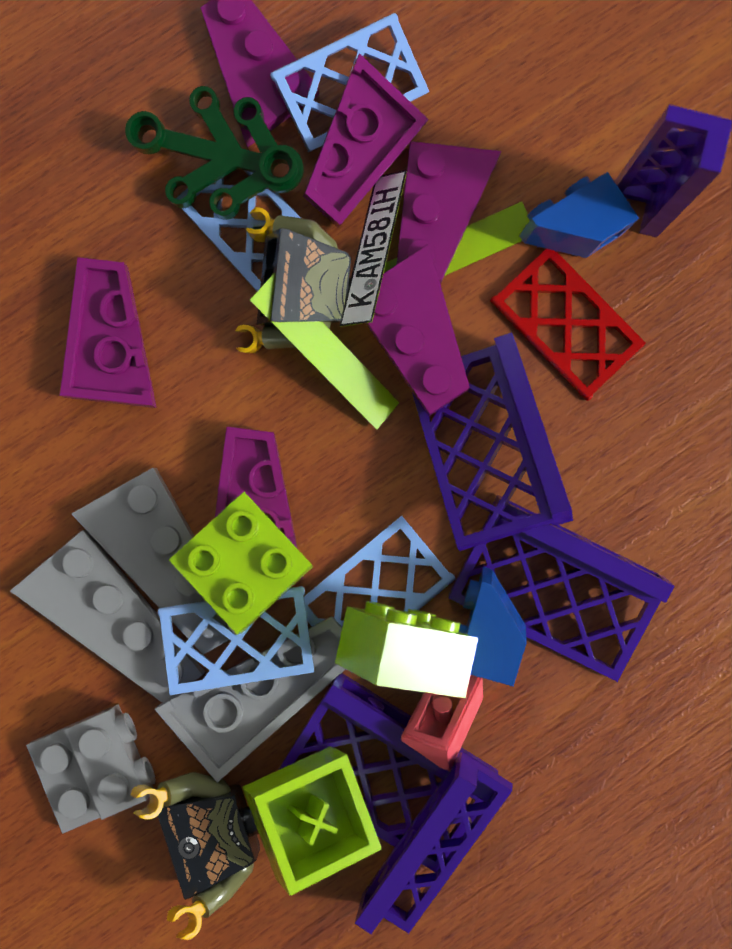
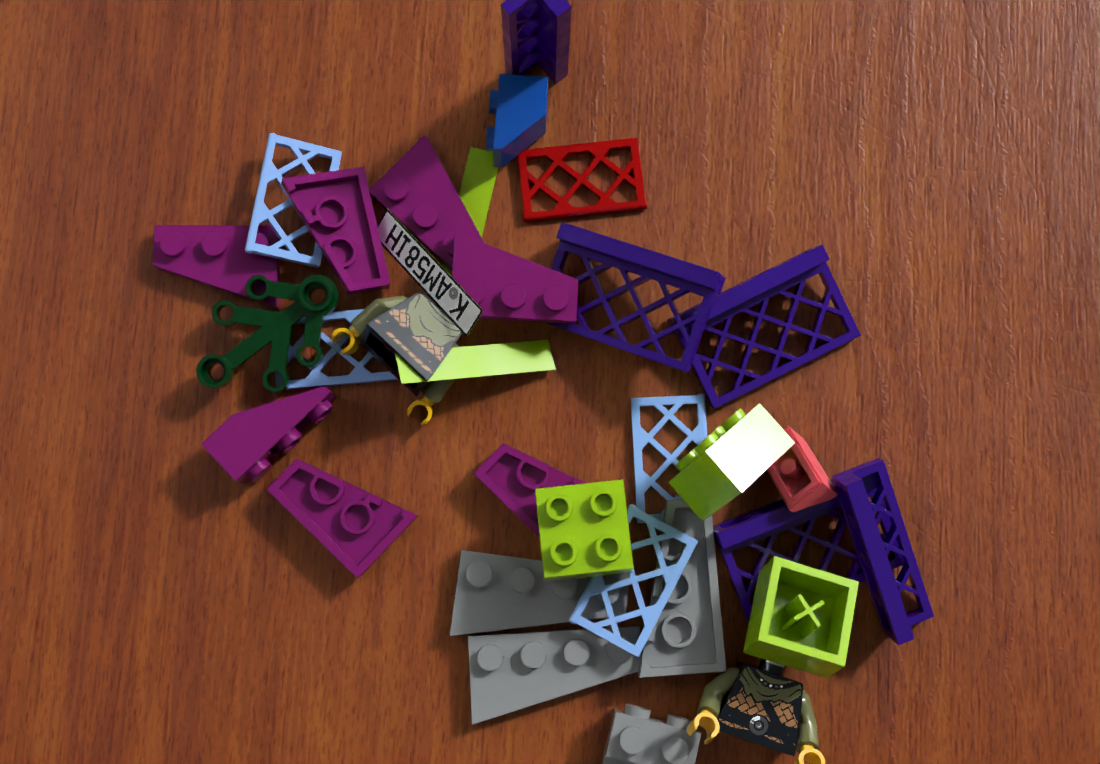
camera: 55 degrees left, 5 degrees down
(112, 211) = (257, 435): none -> magenta slope
(497, 627) = (761, 385): blue slope -> none

